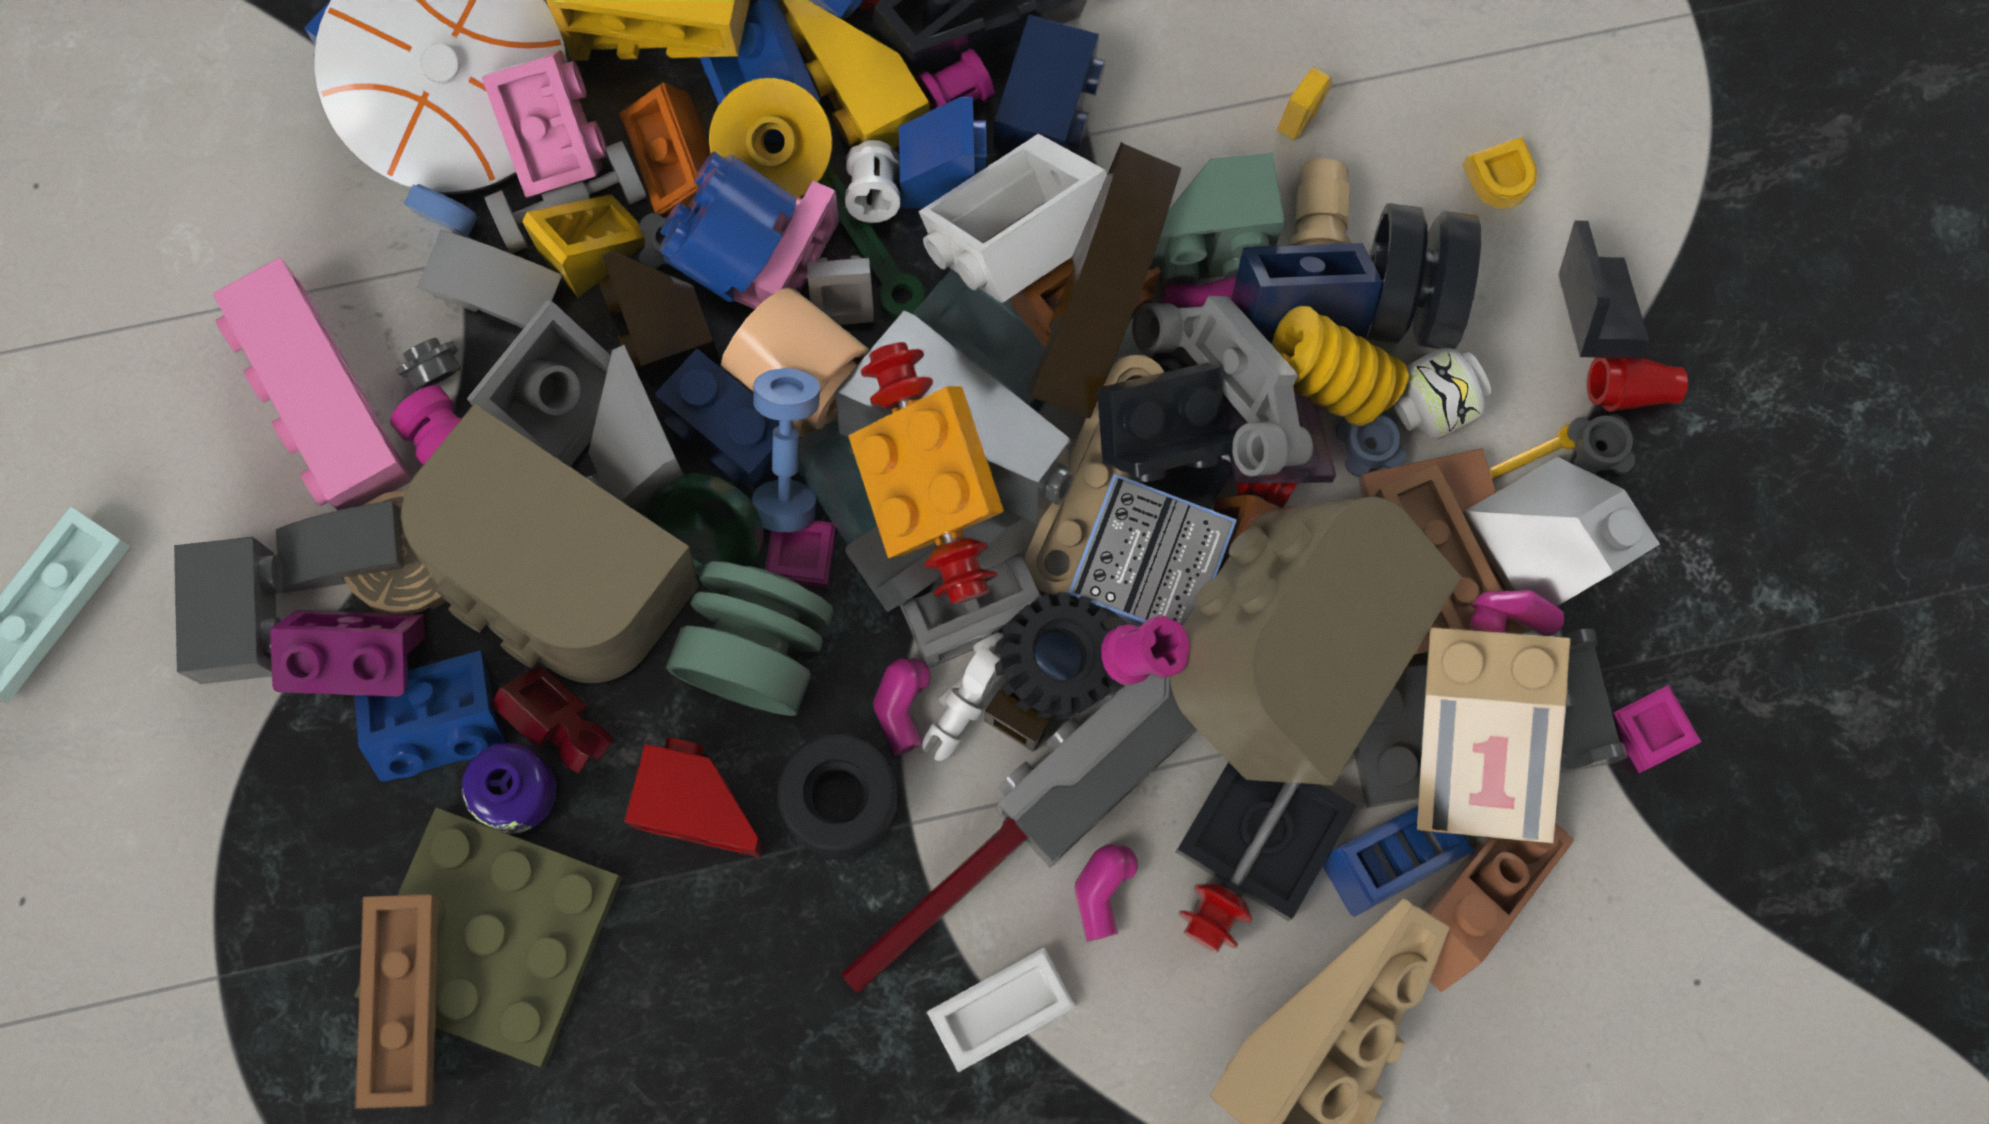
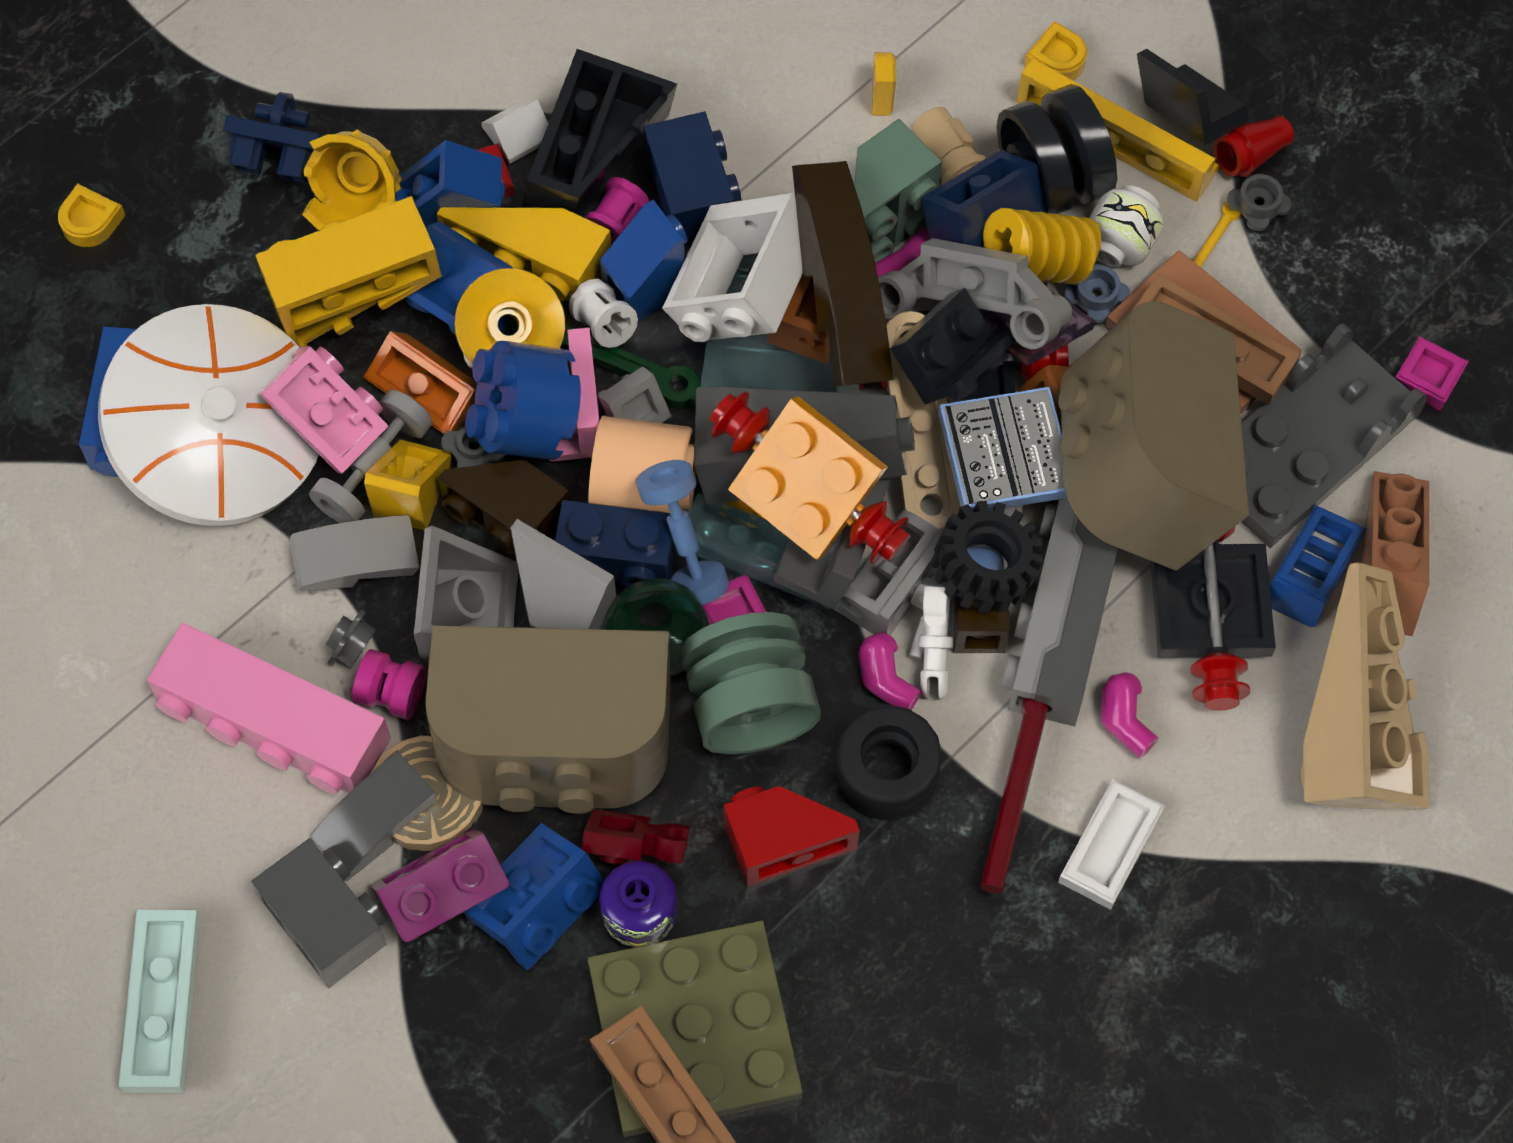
camera: 30 degrees left, 10 degrees down
(441, 210) = (279, 521): medium blue tile -> none
(1154, 648) = (1044, 516): dark pink bush -> none
(1493, 734) = (1327, 428): tan slope -> none
(1510, 296) = (1132, 137): none -> yellow hinge
(1525, 606) = (1287, 332): dark pink arm -> none
(1559, 531) = (1275, 274): light grey slope -> none

